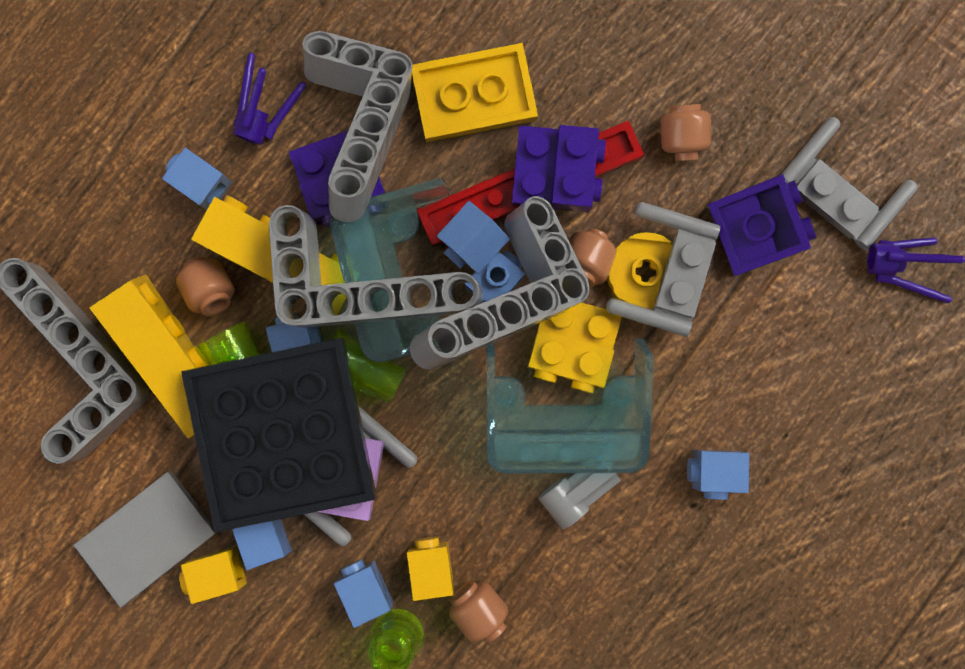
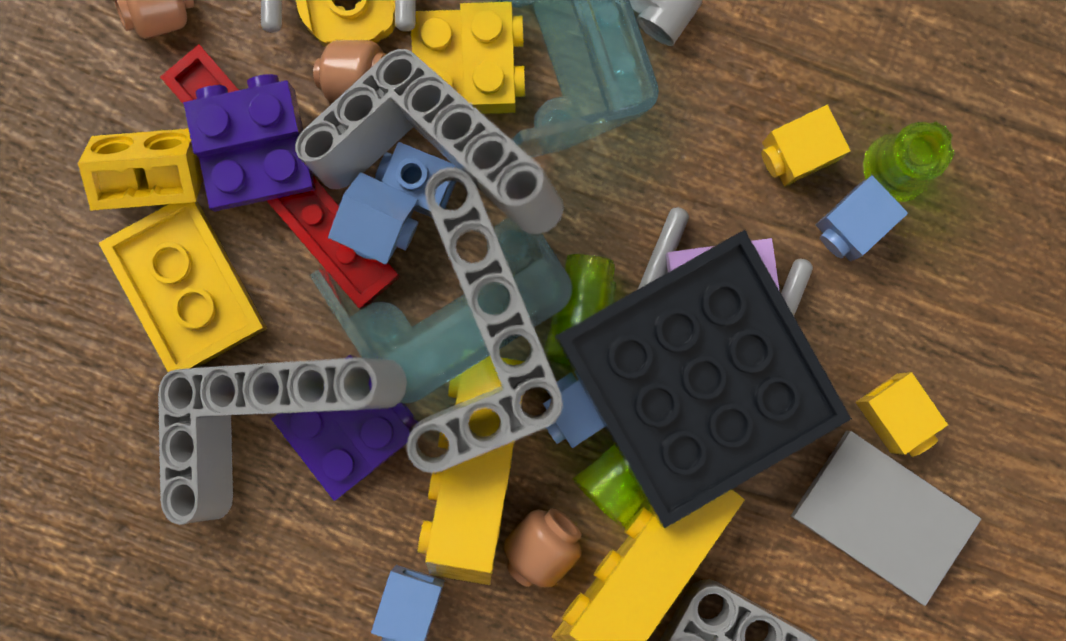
camera: 105 degrees left, 0 degrees up
(250, 122) = (311, 561): dark purple plant -> none
(262, 543) = (847, 362): medium blue brick -> none
(478, 611) = (835, 71): nougat head -> none
(563, 85) = (140, 169): none -> yellow brick

